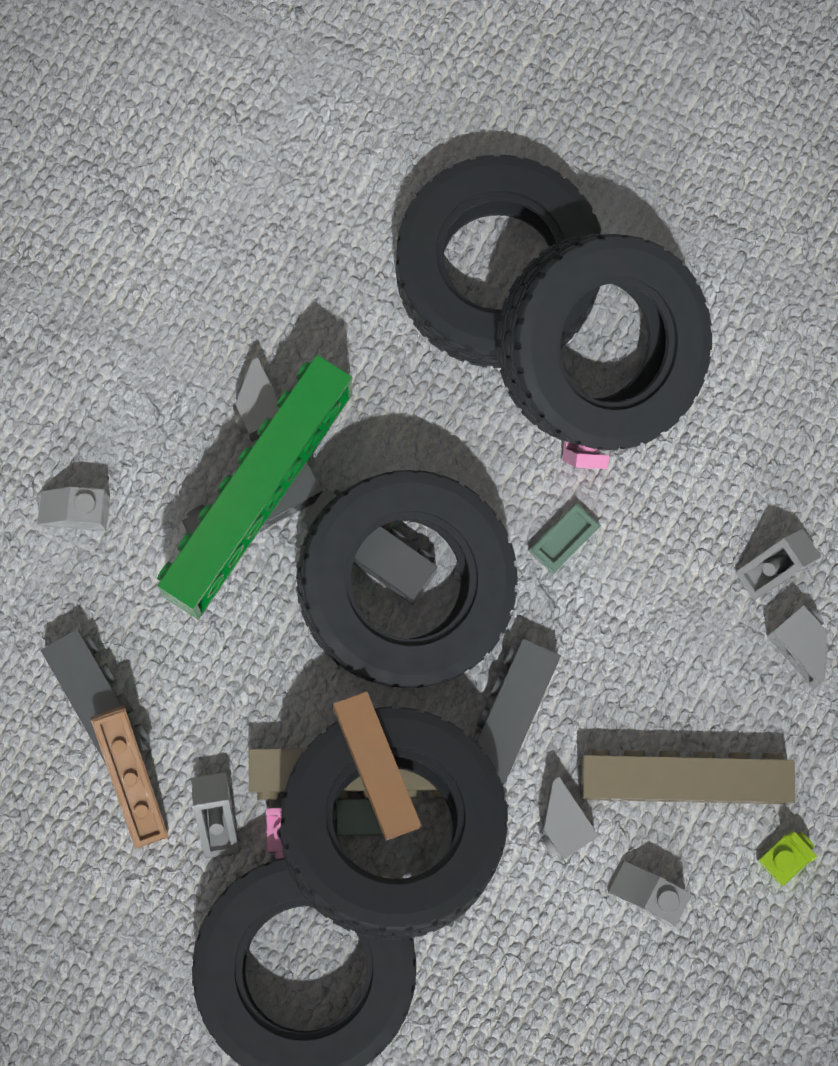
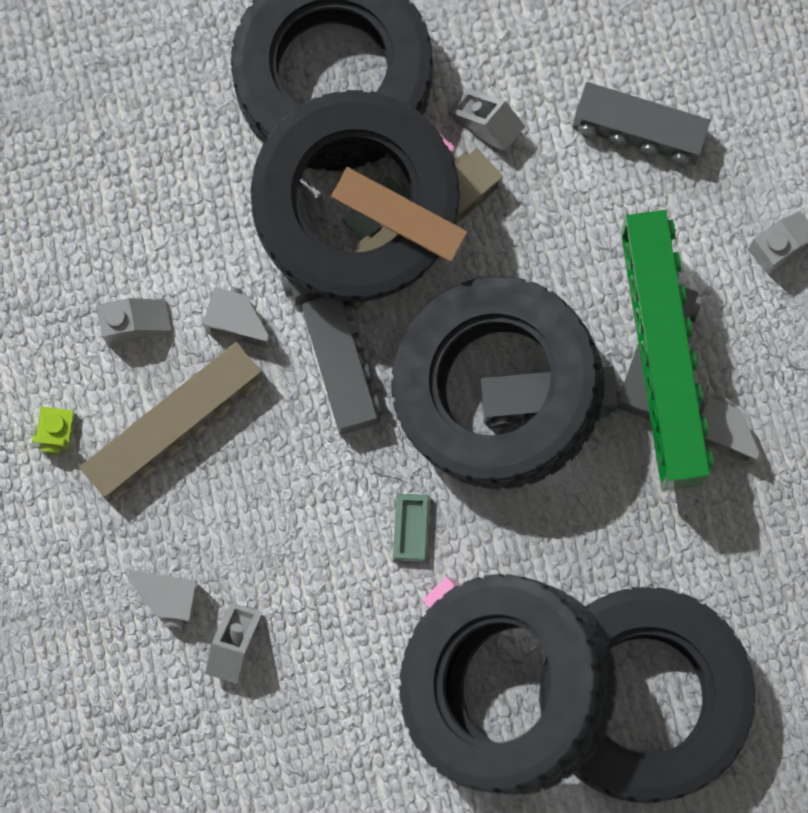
camera: 145 degrees right, 0 degrees up
(129, 777) = (568, 88): medium nougat tile -> none

